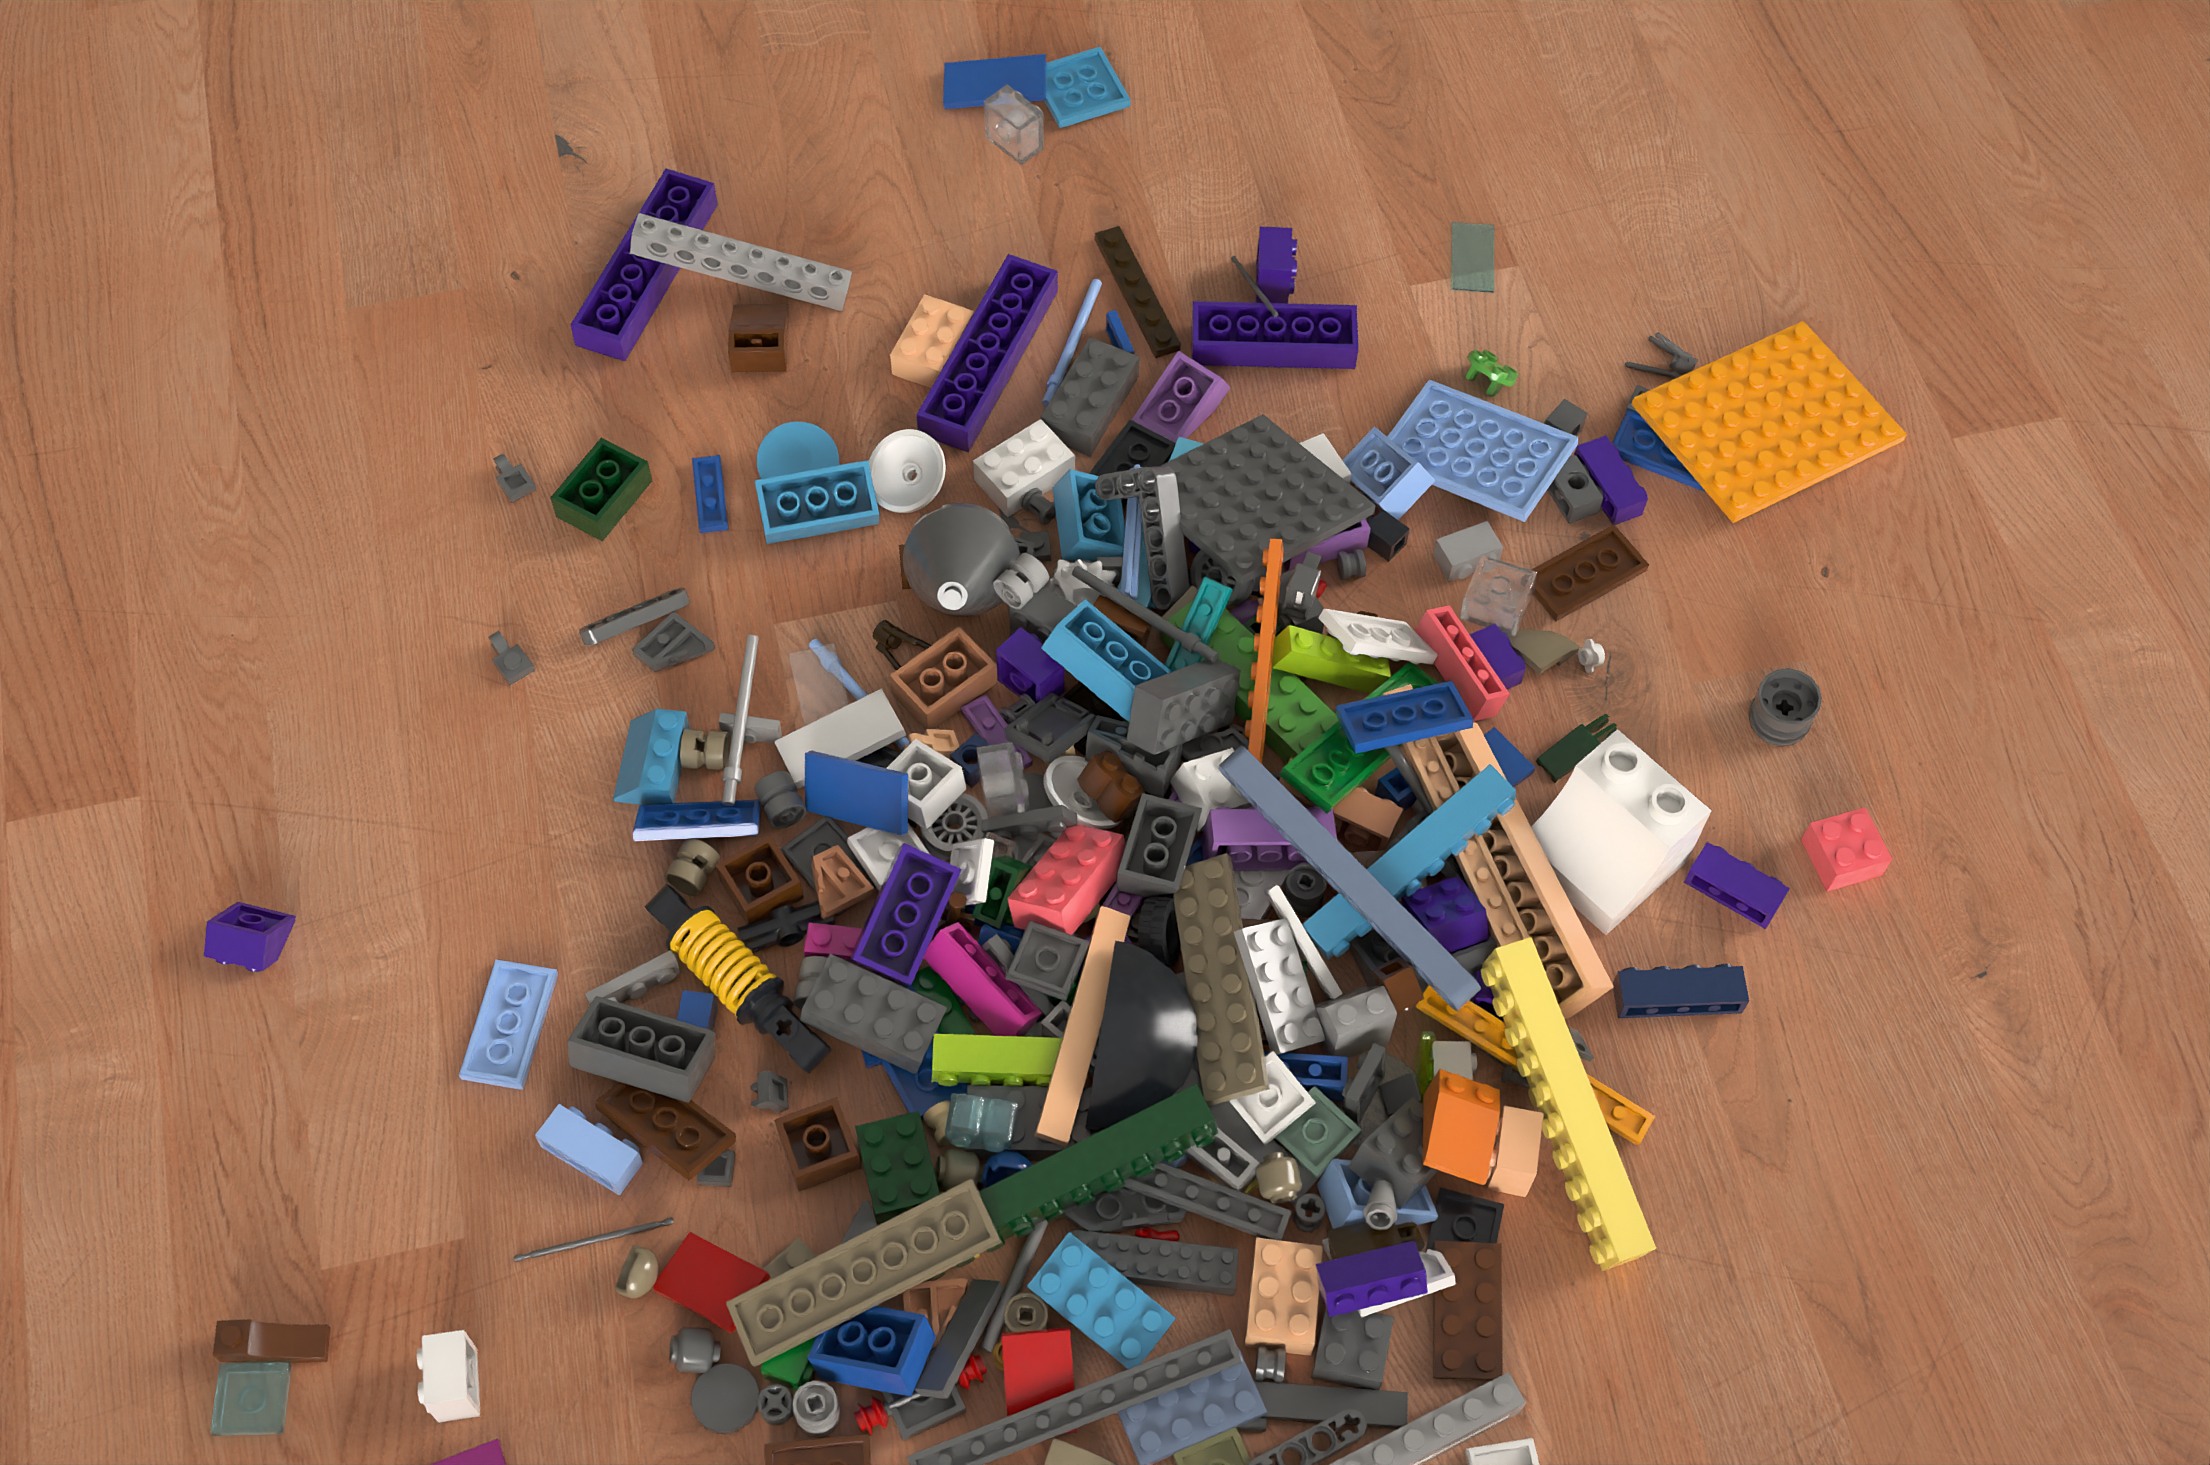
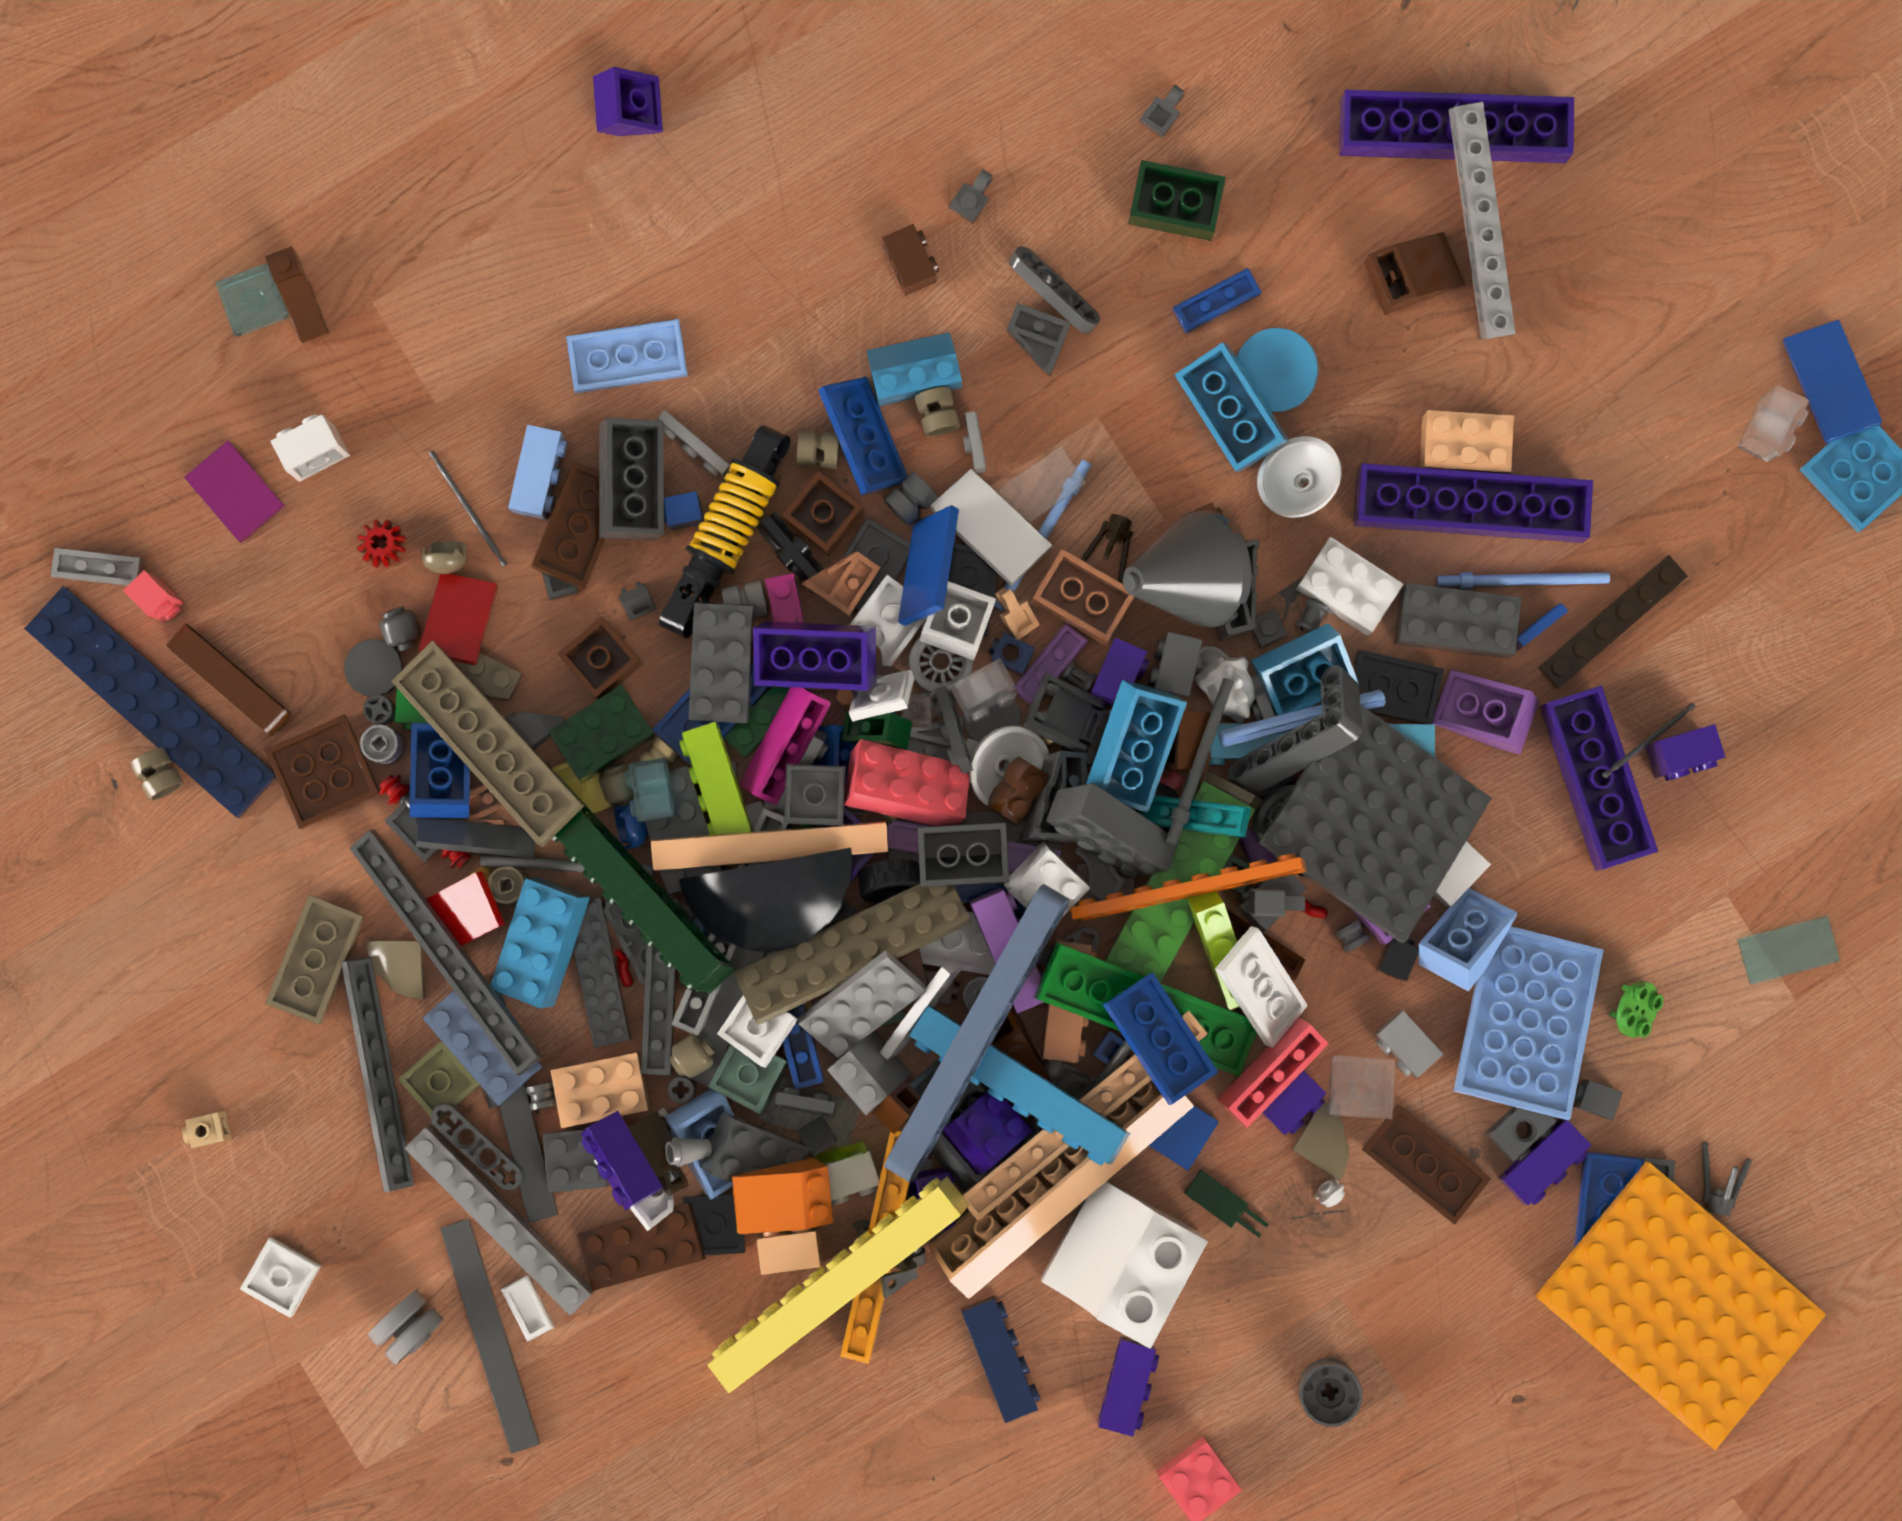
camera: 75 degrees right, 25 degrees up
(543, 728) = (910, 259): none -> reddish brown brick
(605, 1339) = (373, 550): none -> red gear
(733, 773) = (917, 447): light grey bar -> none
(1022, 580) = (1197, 640): light grey wheel -> none

